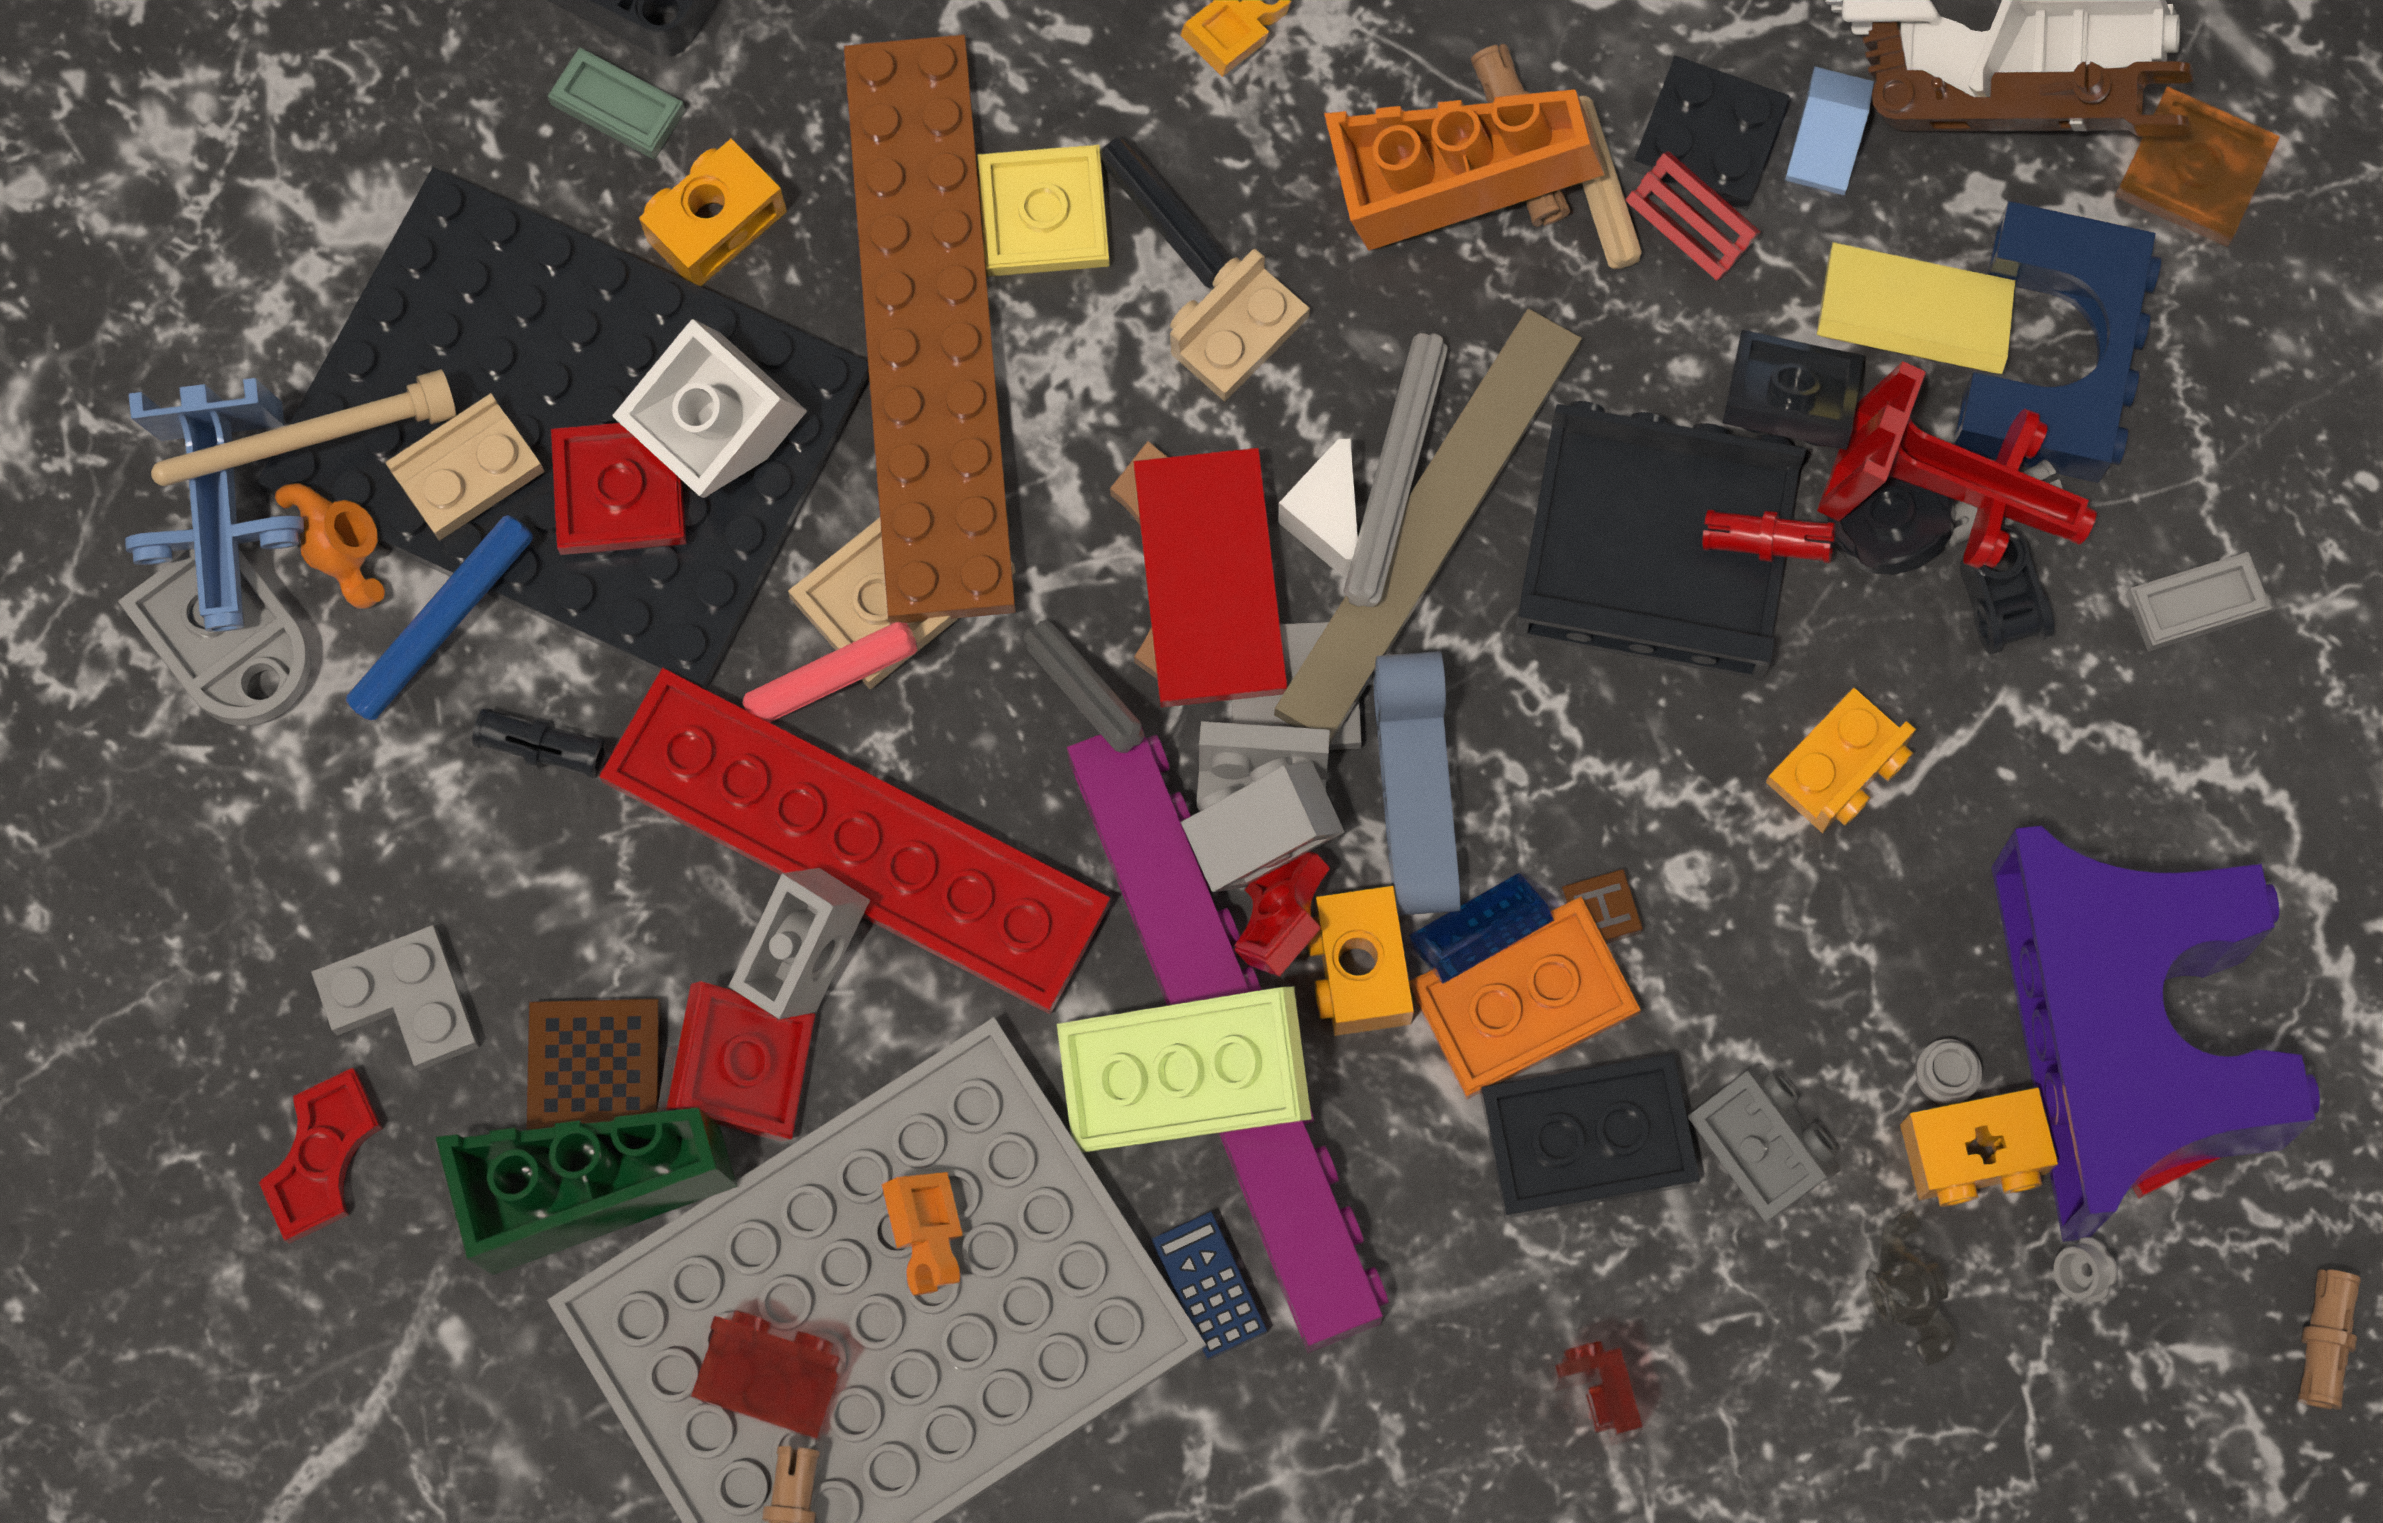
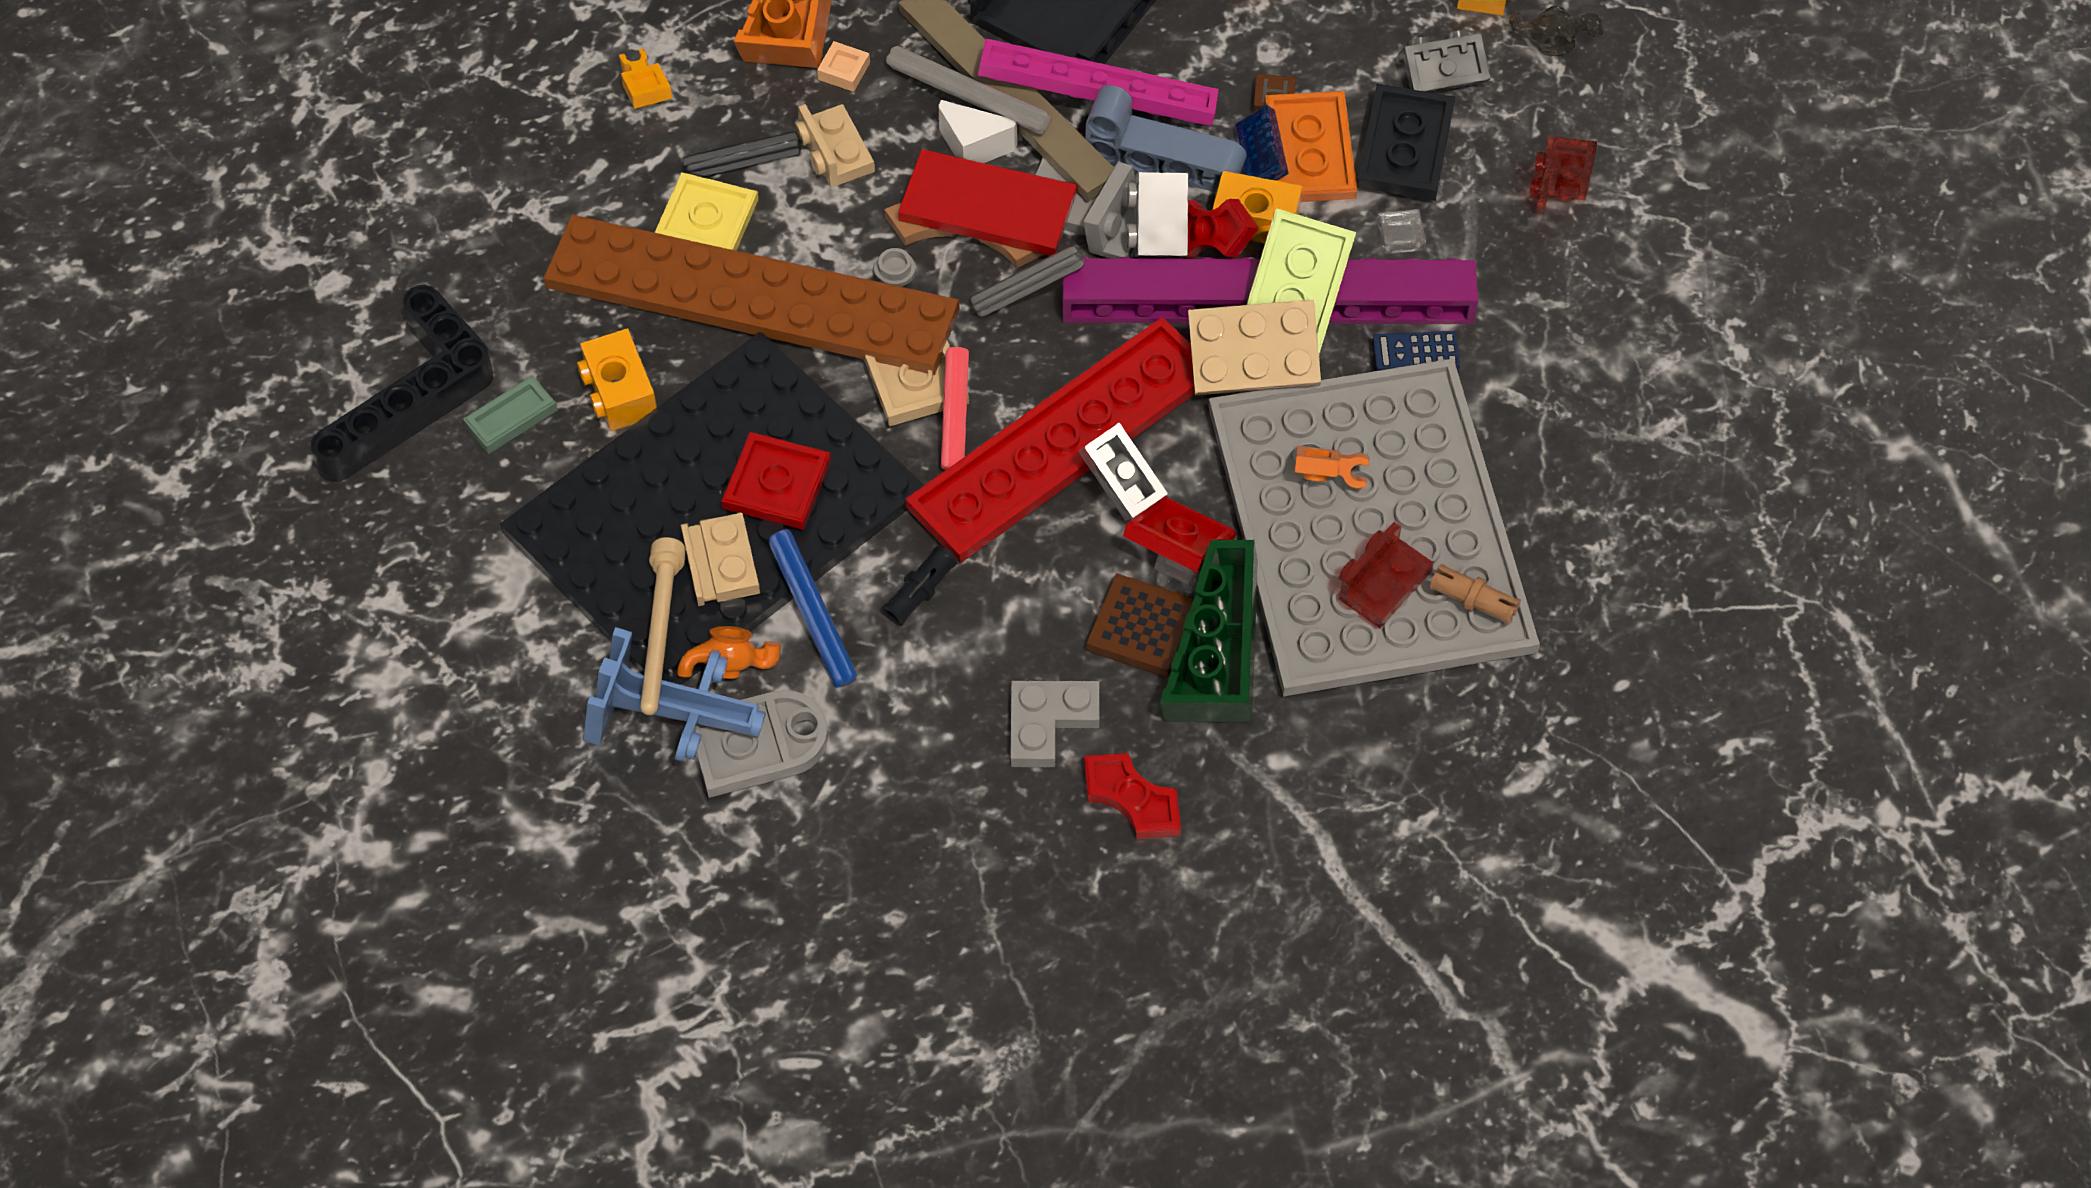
camera: 70 degrees left, 15 degrees down
(708, 410) = (758, 400): white slope -> none
(1055, 497) = (895, 267): none -> light grey plate
(1082, 1048) = (1254, 347): none -> tan plate
(1385, 282) = (843, 66): none -> light nougat tile
(1424, 1188) = (1402, 231): none -> clear tile
(1488, 647) = (1084, 79): none -> dark pink plate

